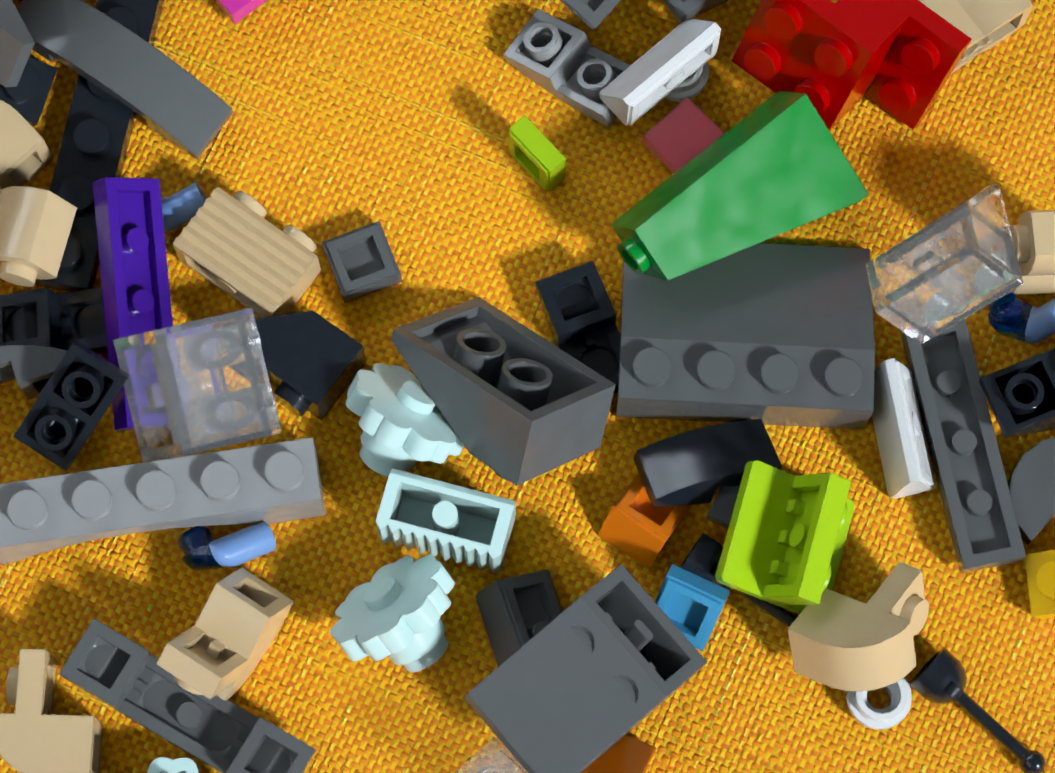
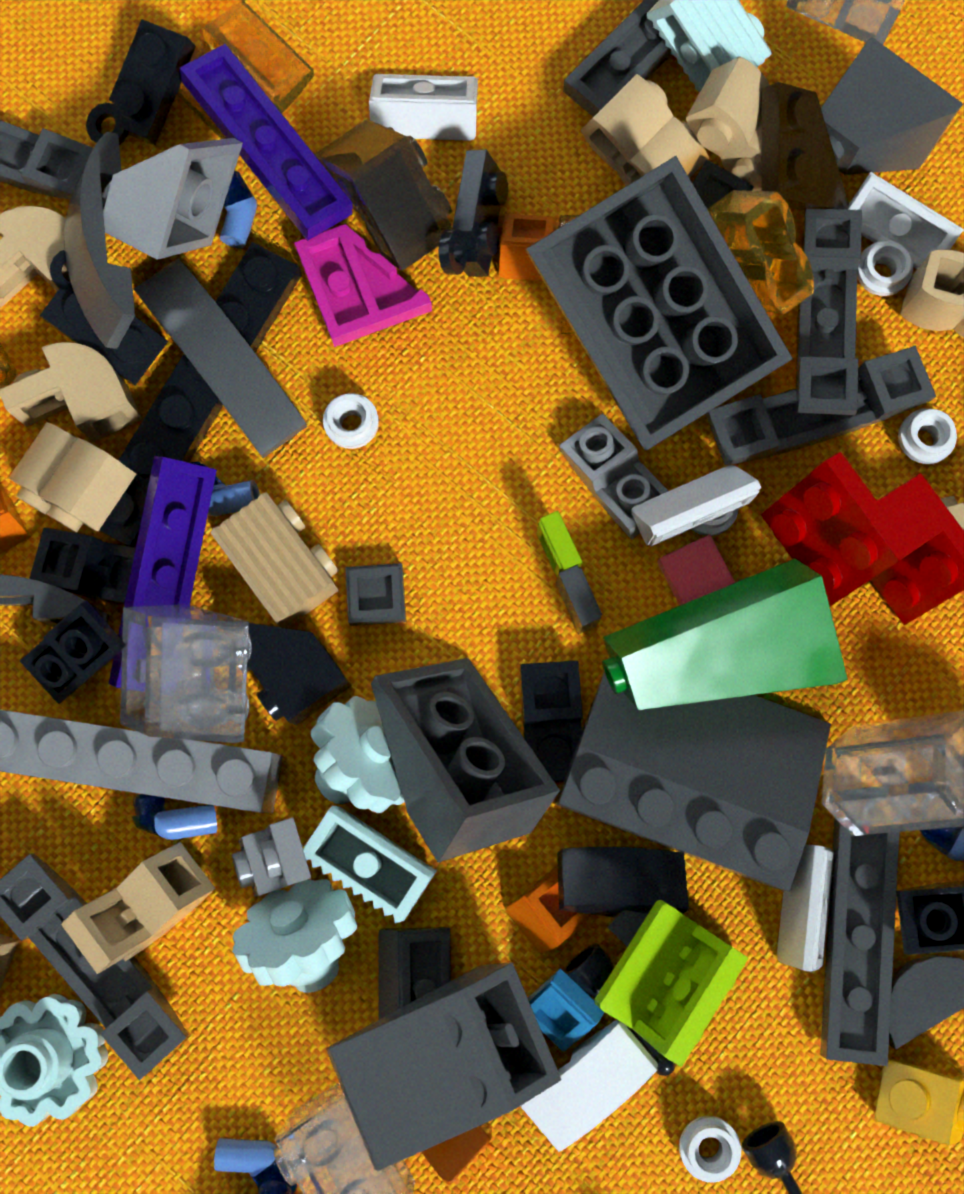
camera: 20 degrees right, 5 degrees up
(277, 77) = (348, 405): none -> white plate
(346, 545) = (271, 858): none -> light grey slope
(573, 201) = (578, 599): none -> dark grey tile
(736, 671) = (593, 1085): none -> white slope
(861, 643) = (710, 1107): tan brick -> none

